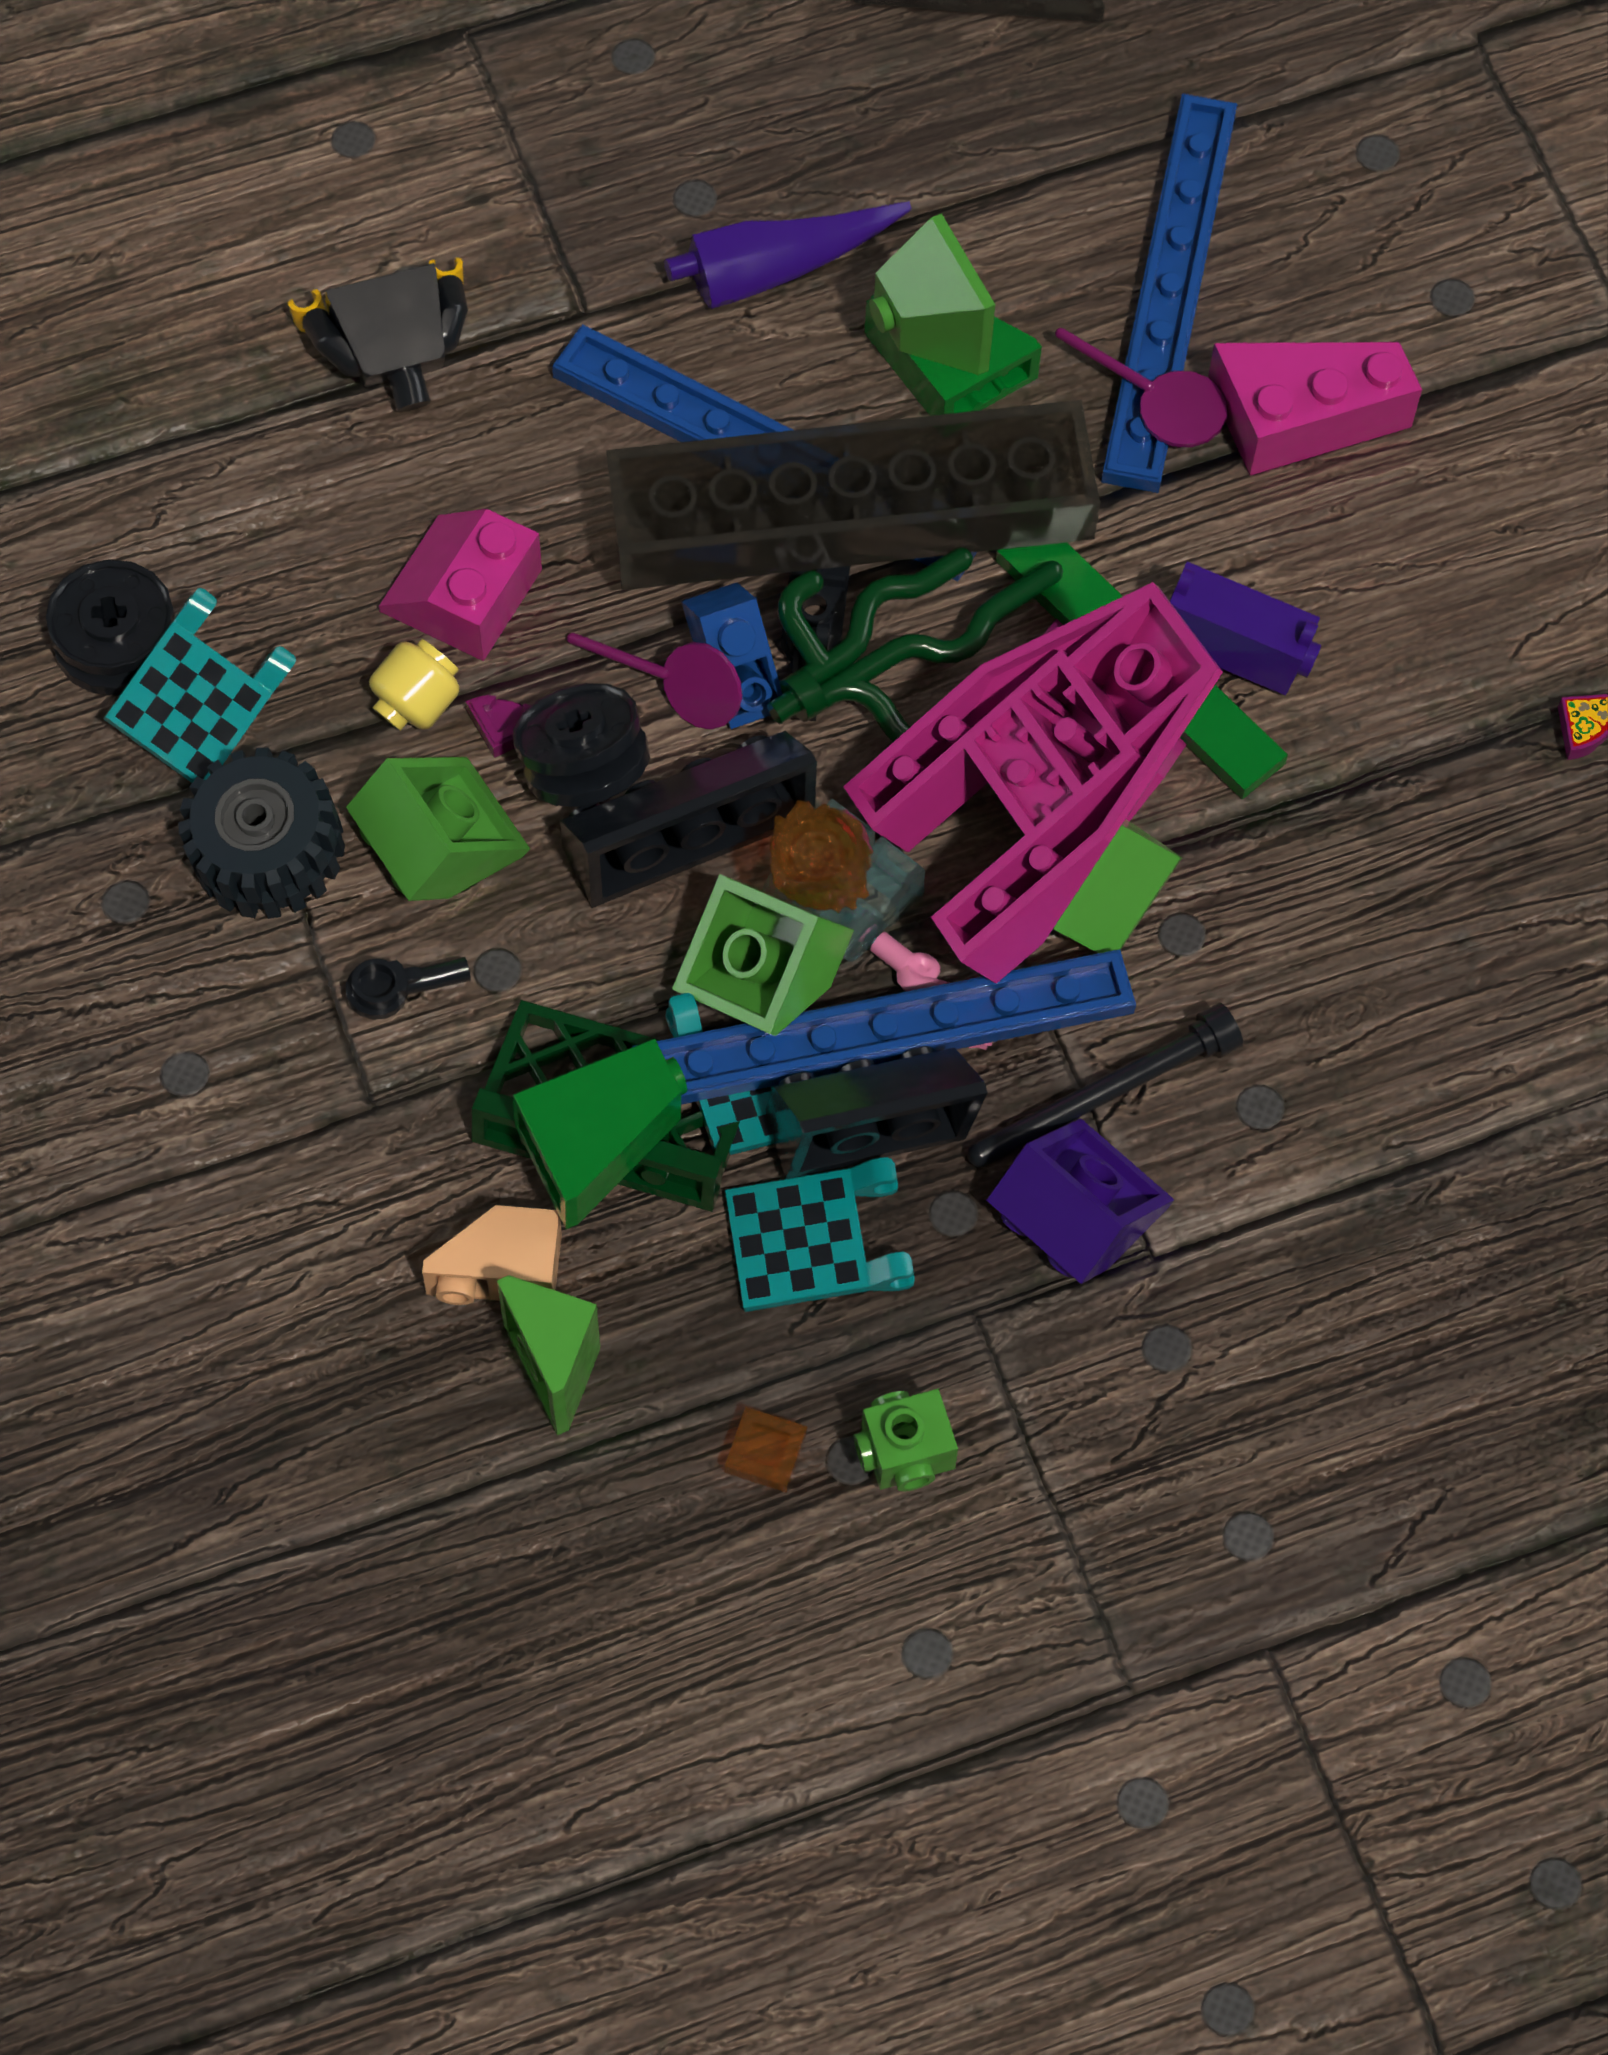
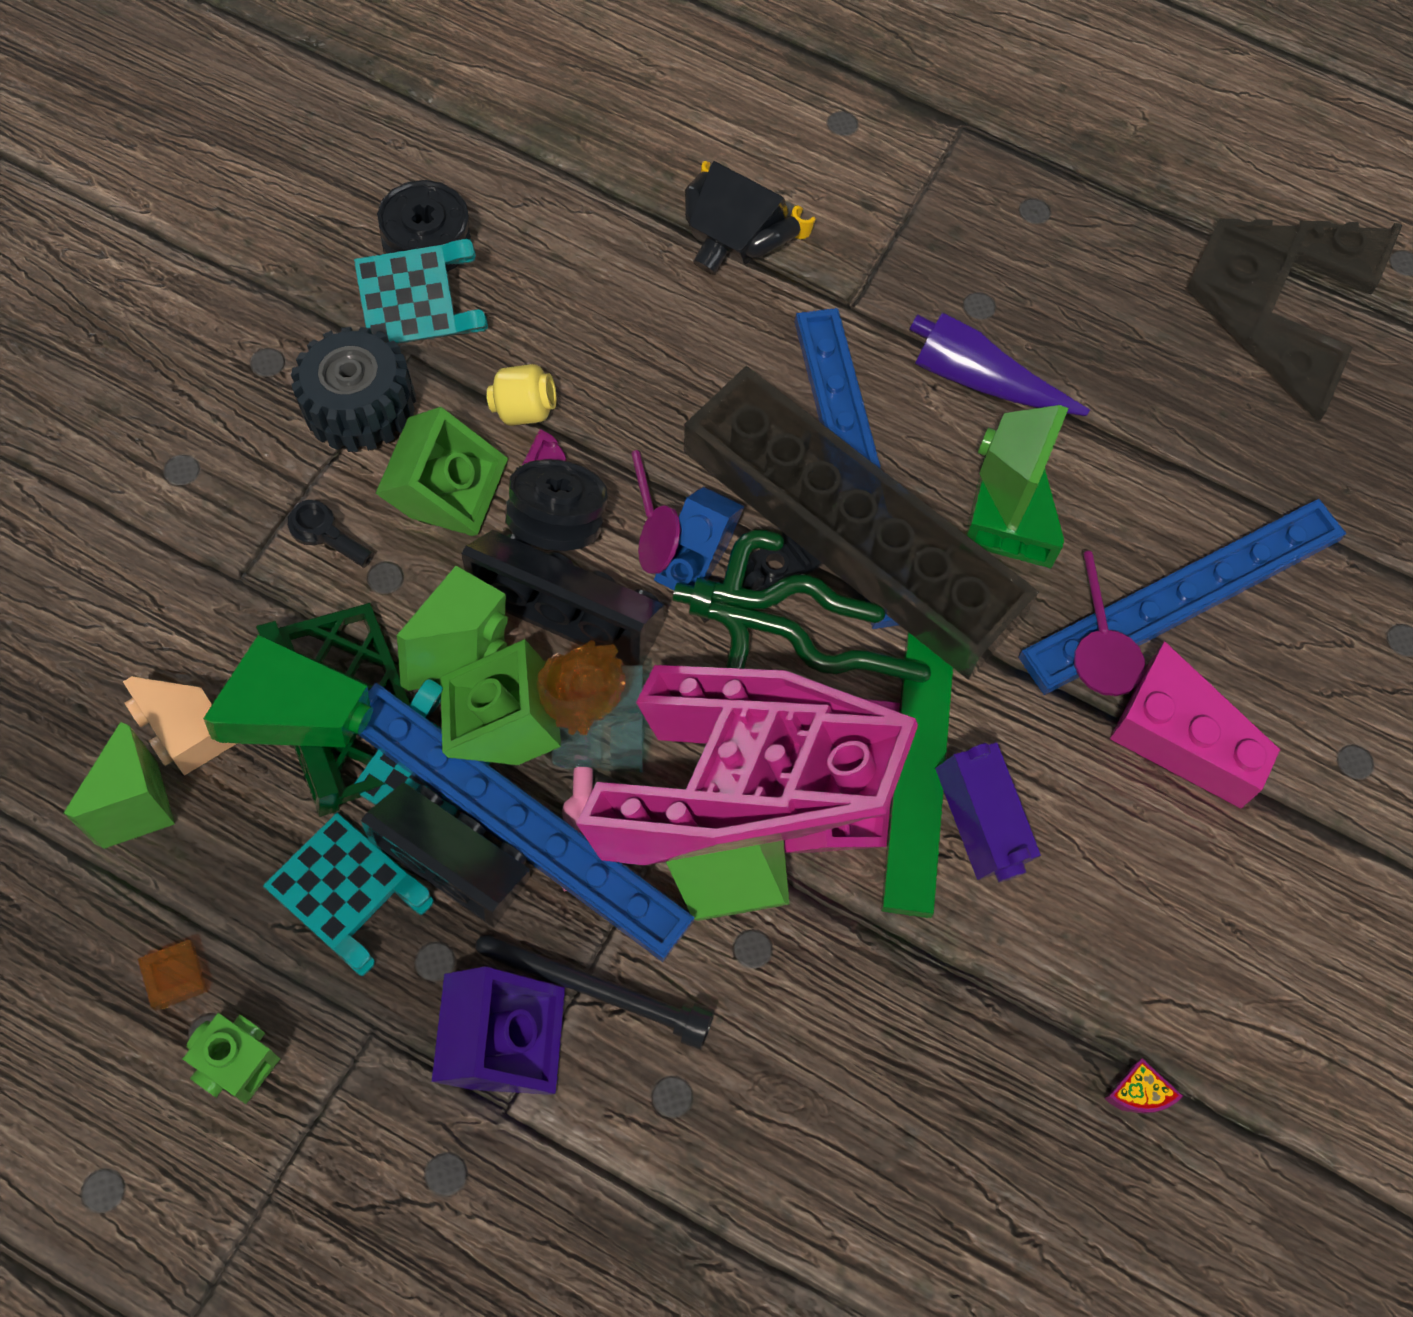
camera: 45 degrees right, 0 degrees up
(466, 579) = (617, 375): dark pink slope -> none
(647, 929) = (451, 629): none -> bright green slope

